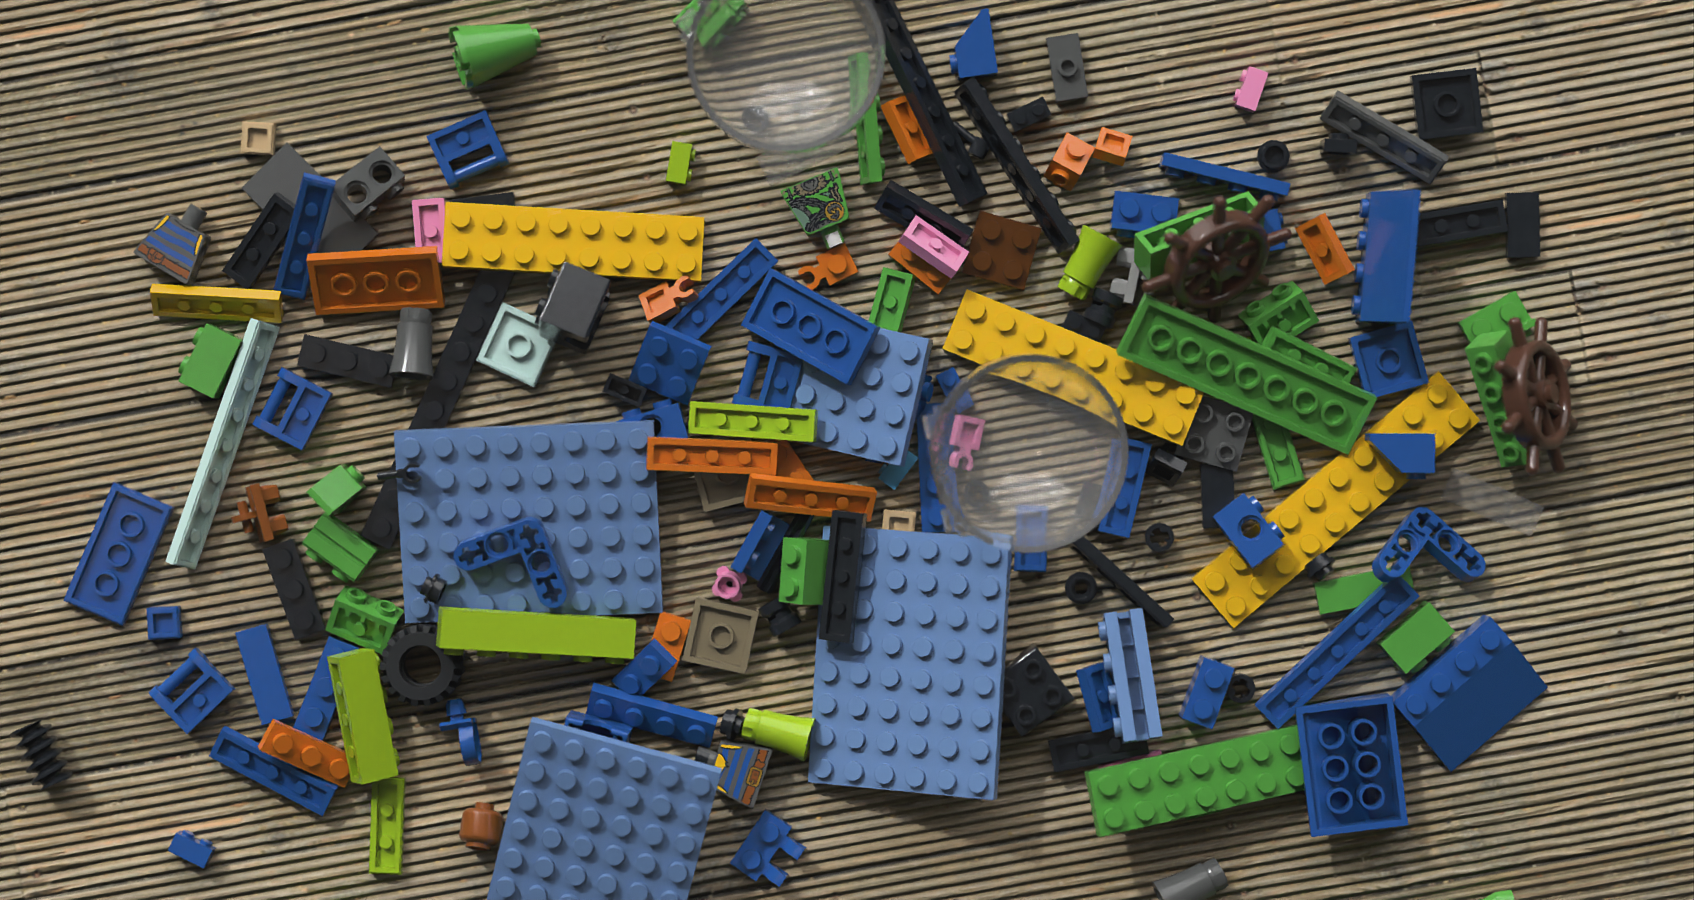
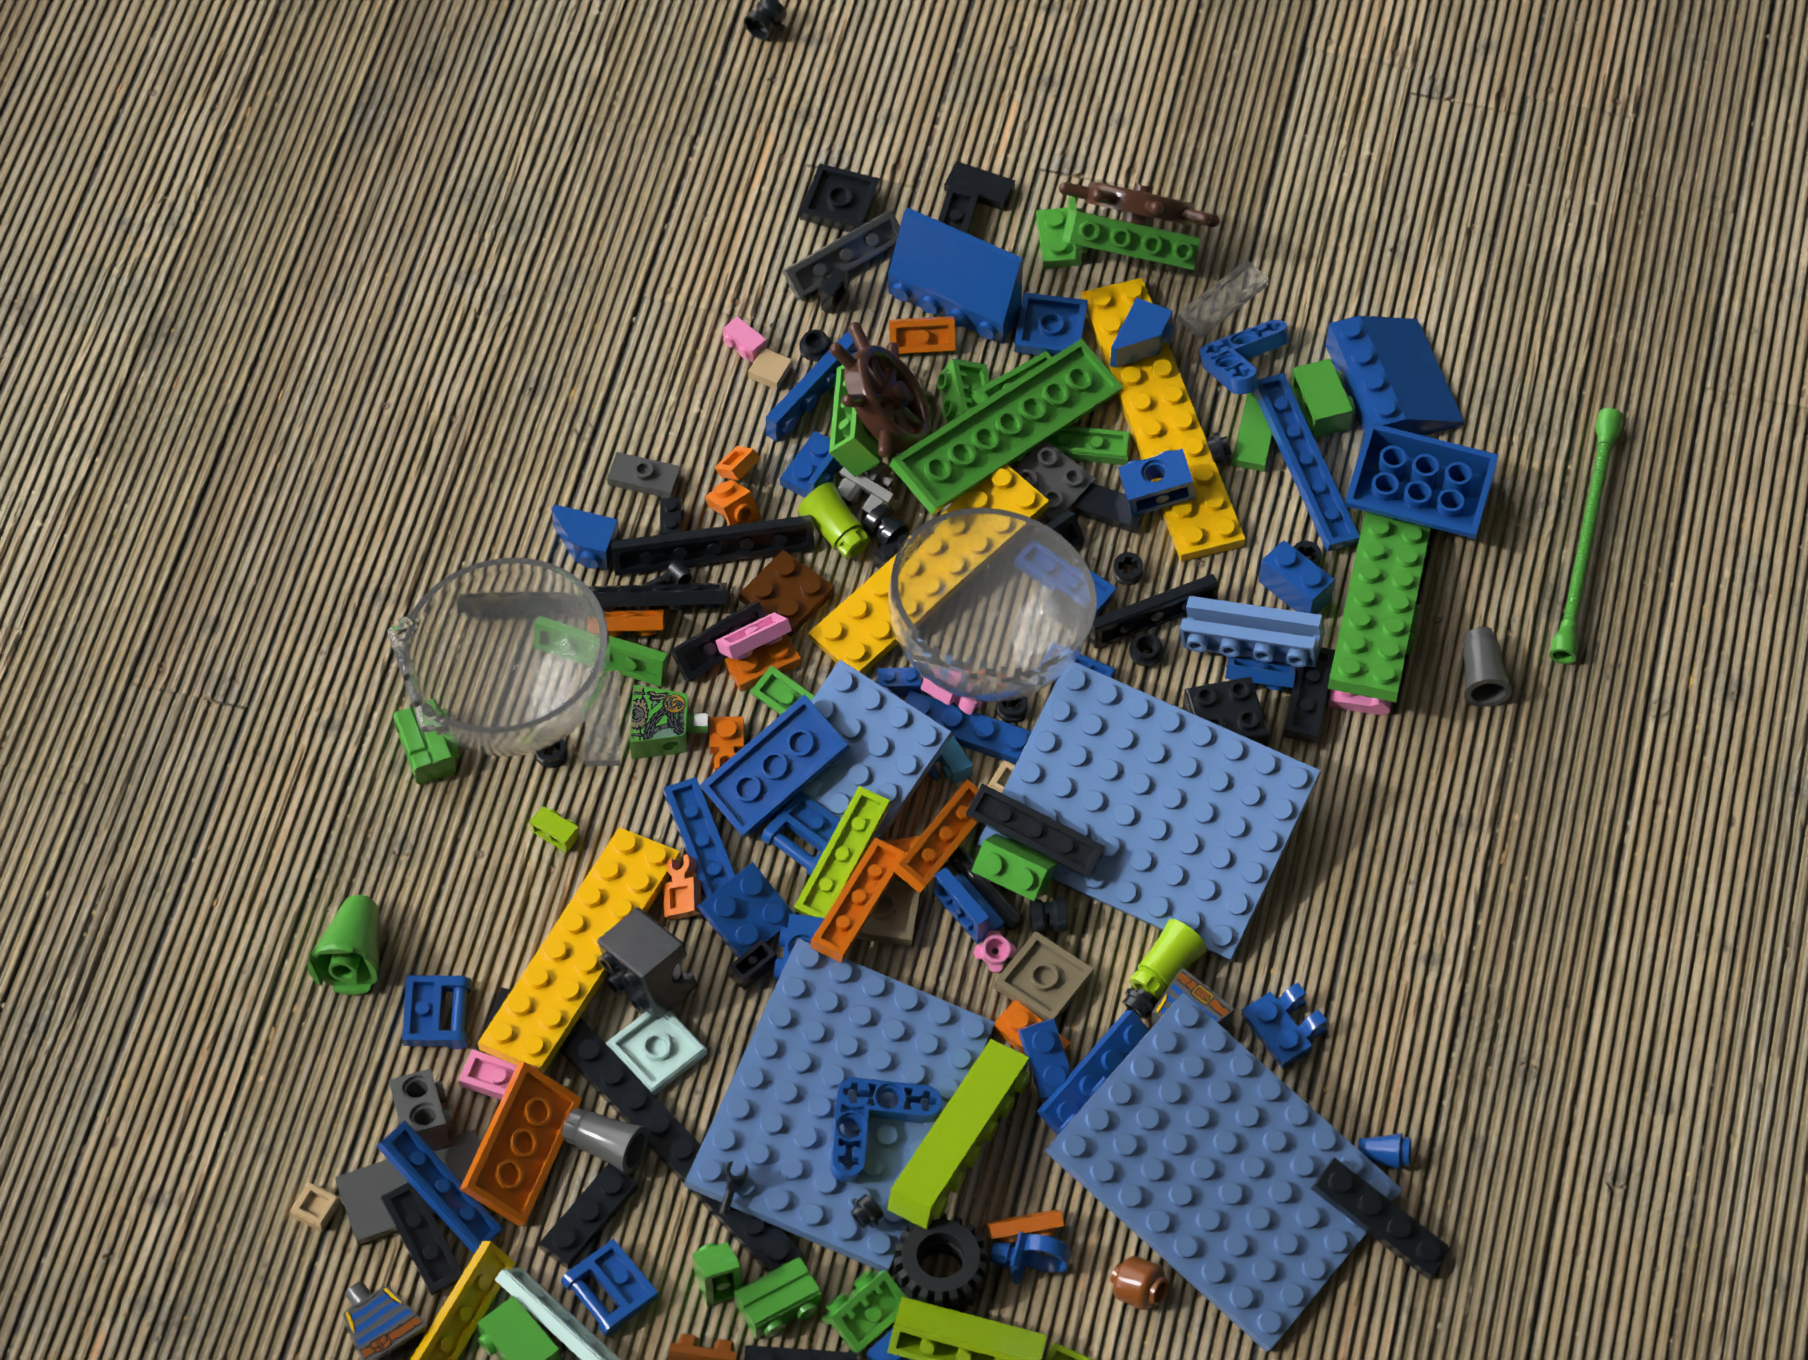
camera: 70 degrees left, 30 degrees down
(491, 714) = (1039, 1223): none -> orange plate
(1231, 126) = (769, 368): none -> tan tile

